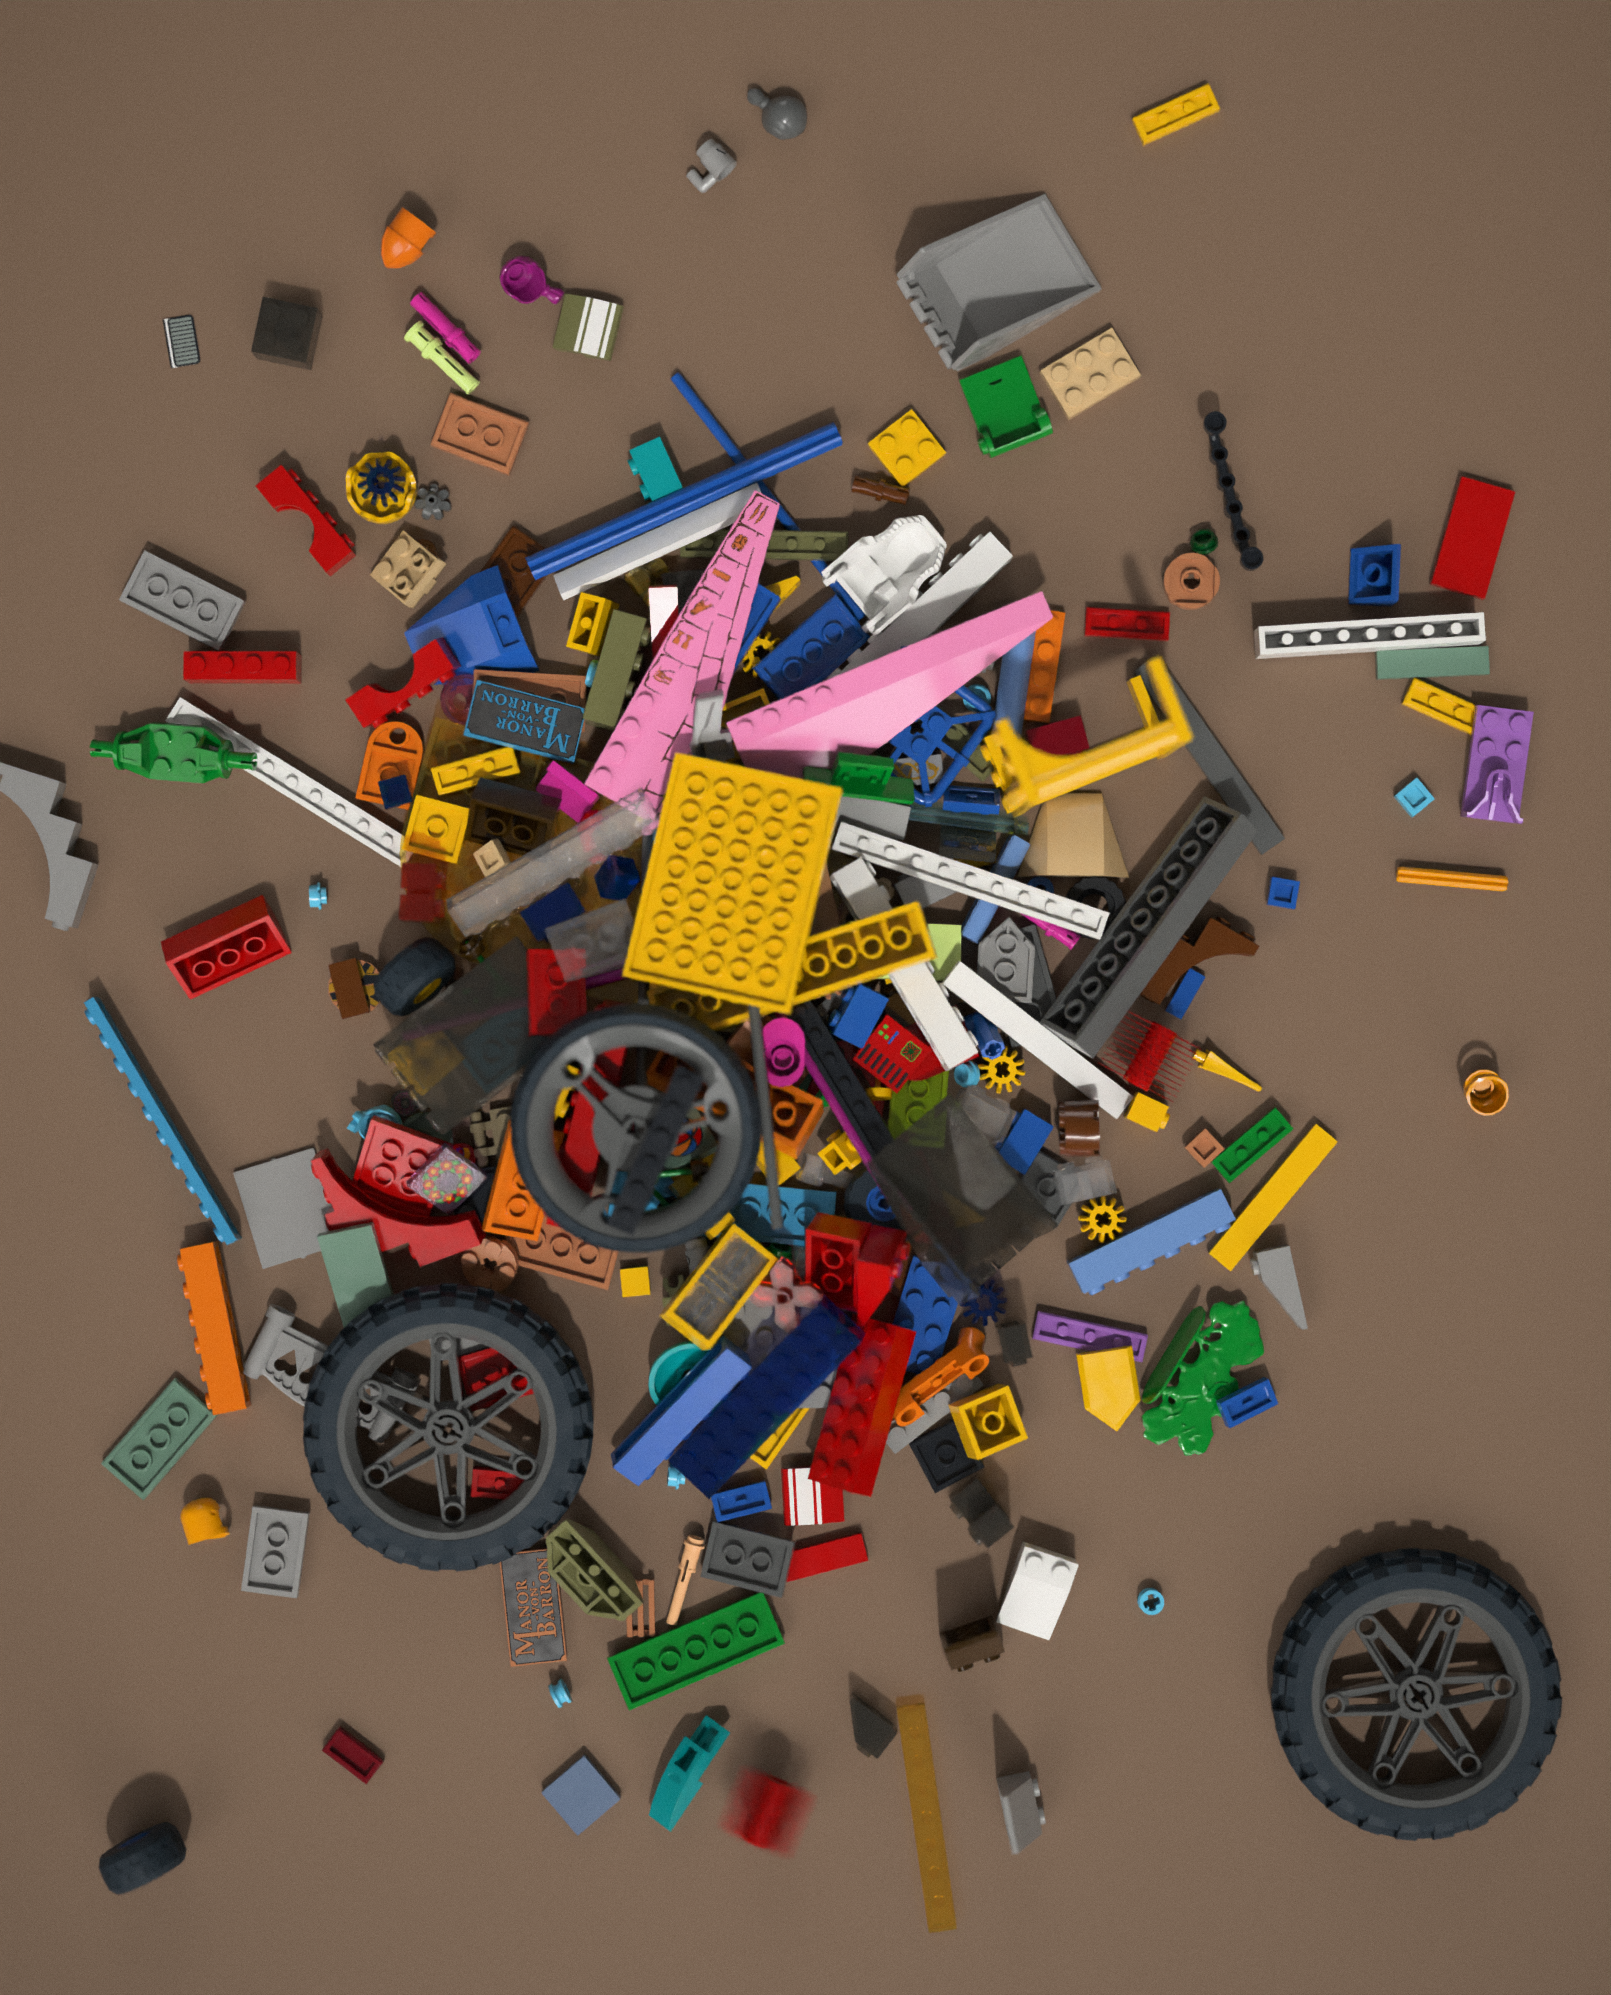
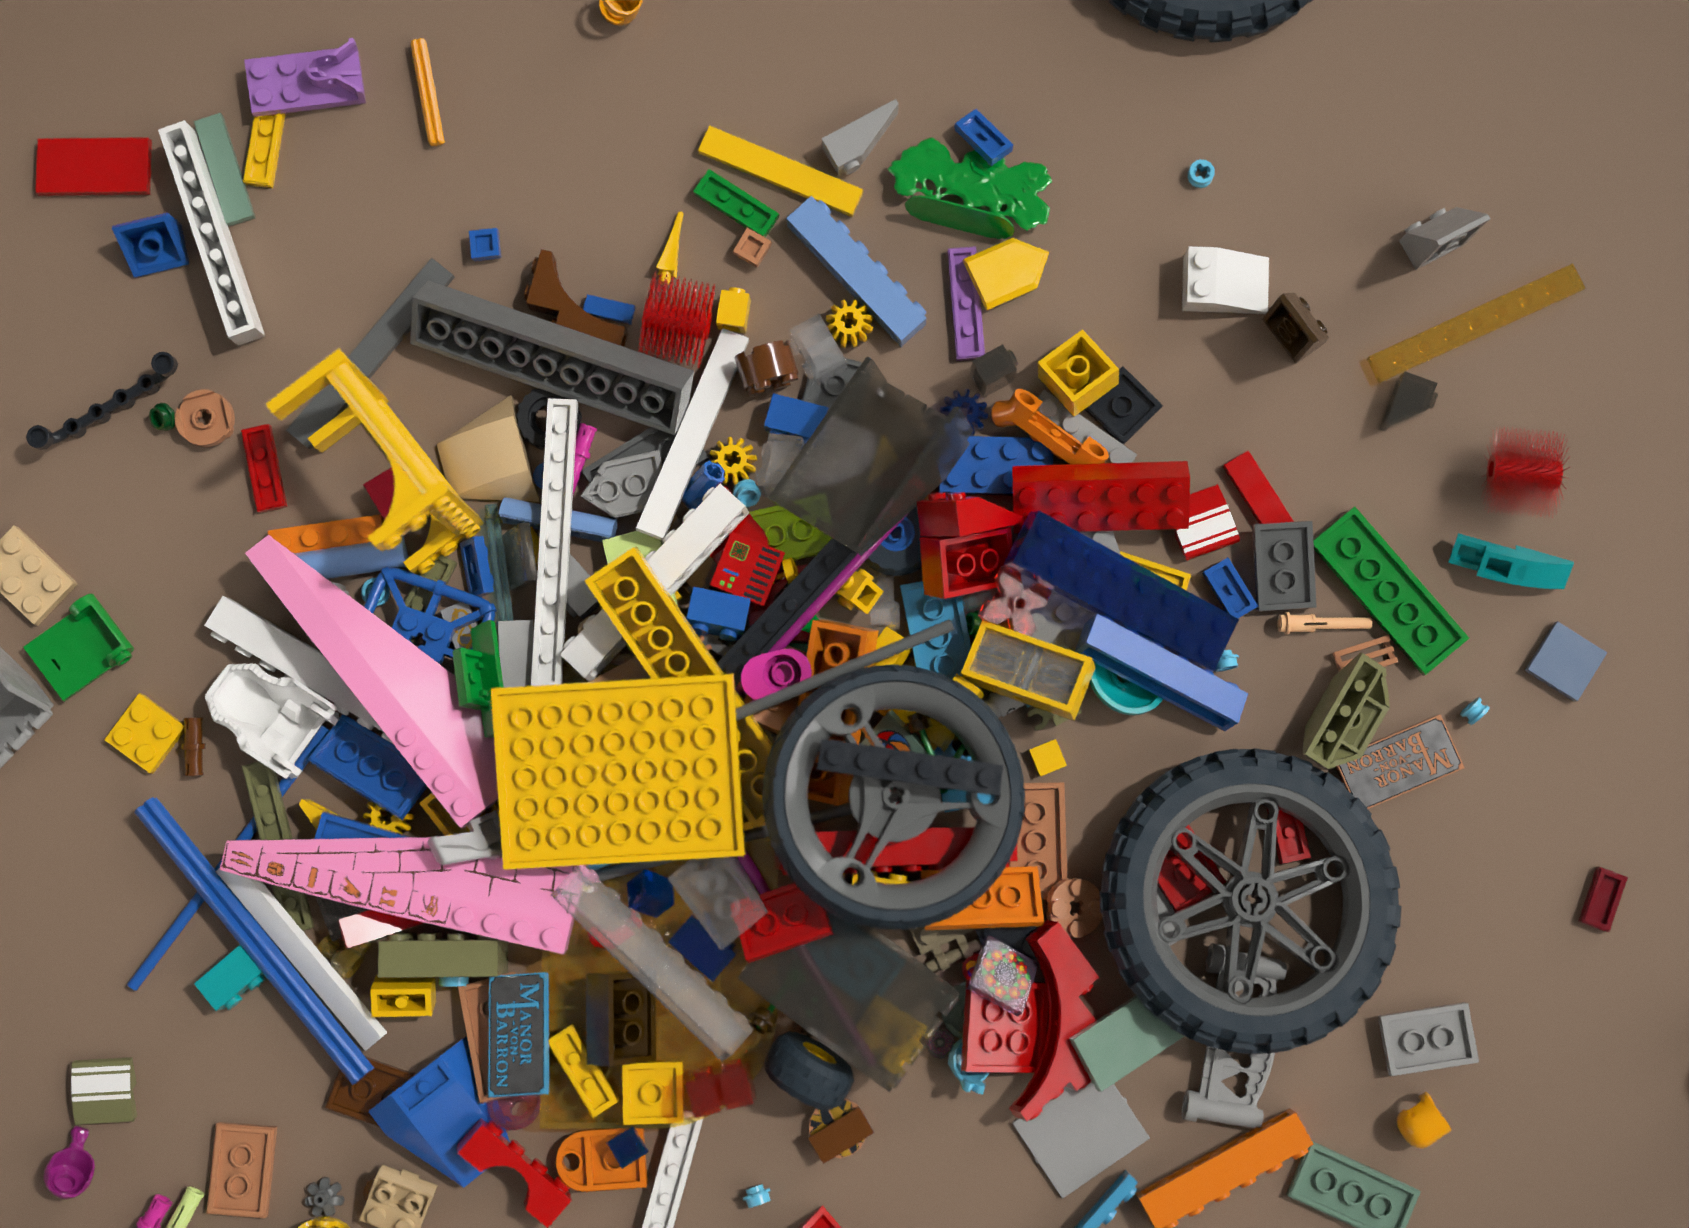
camera: 100 degrees left, 5 degrees down
(491, 857) = (665, 1027): tan plate -> none
(574, 794) = (571, 975): dark pink panel -> none
(985, 1516) = (1172, 347): clear smoke brick -> none
(1414, 797) = (359, 149): medium azure tile -> none

